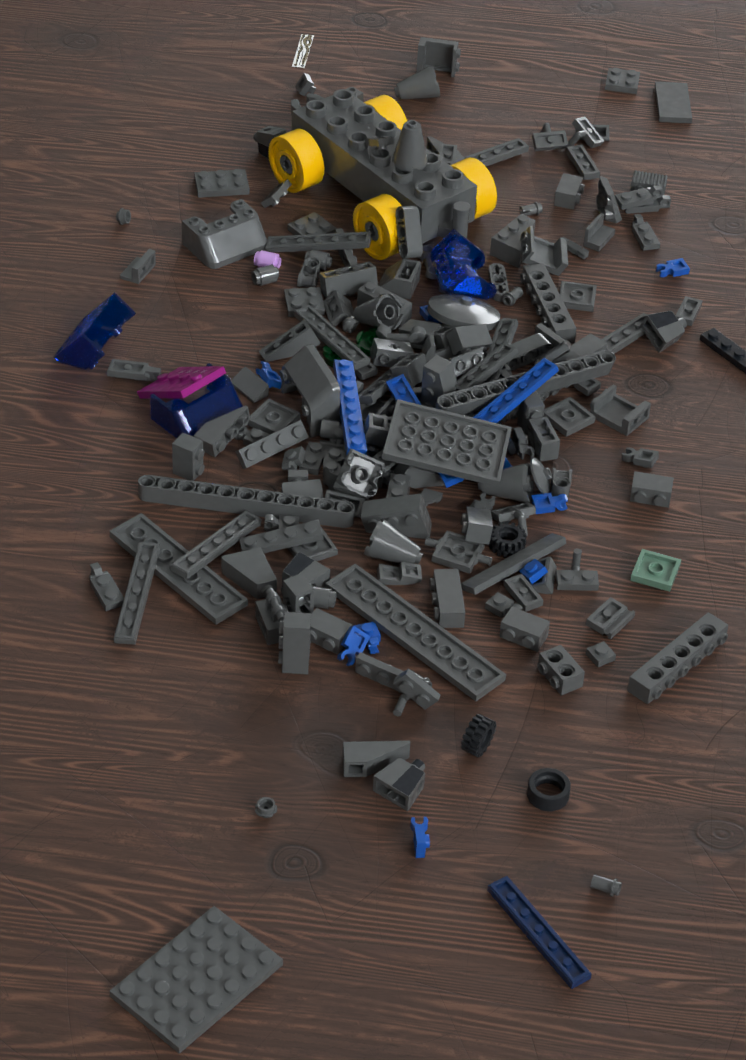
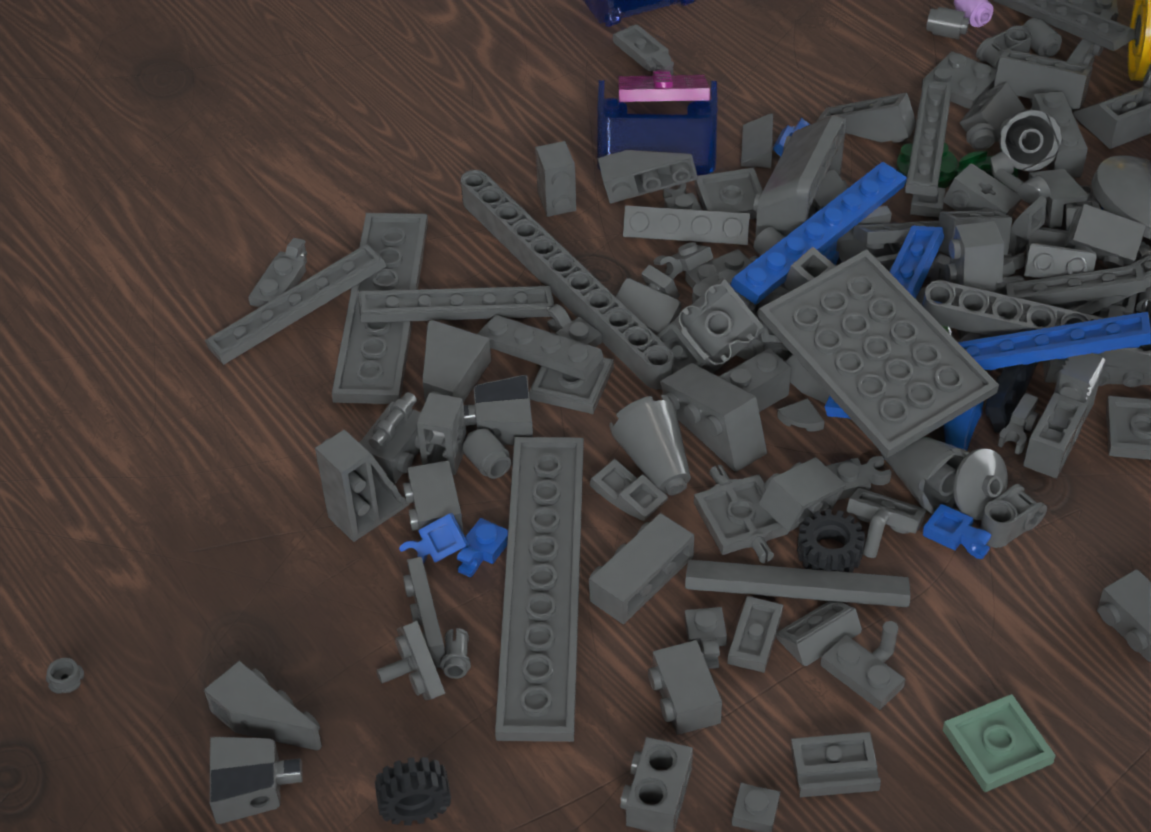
camera: 50 degrees right, 5 degrees up
(533, 571) = (805, 613): blue plate -> none

